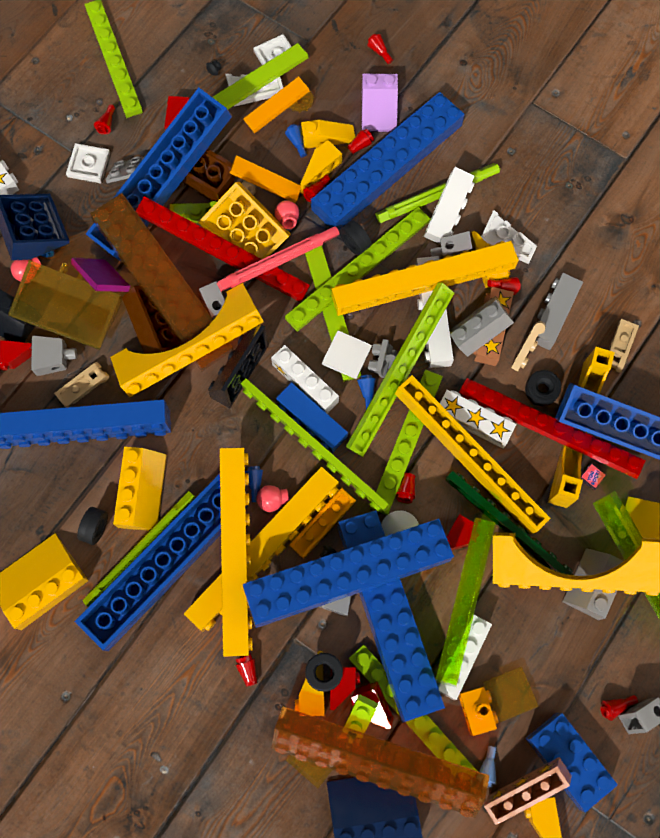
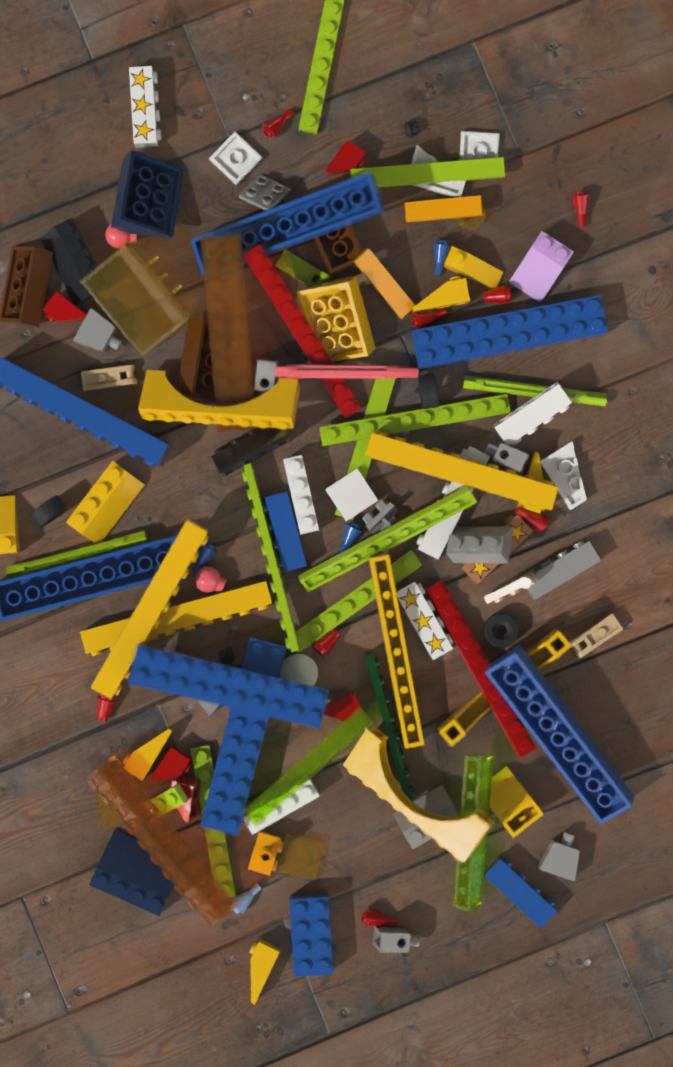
camera: 30 degrees right, 15 degrees up
(100, 275) = (181, 288): magenta tile -> none
(287, 214) = (383, 328): coral piece -> none
(322, 523) = (239, 626): light orange tile -> none
(337, 672) = (149, 749): black tyre -> none
(528, 791) = (261, 934): nougat brick -> none
(593, 476) = (489, 730): tile -> none

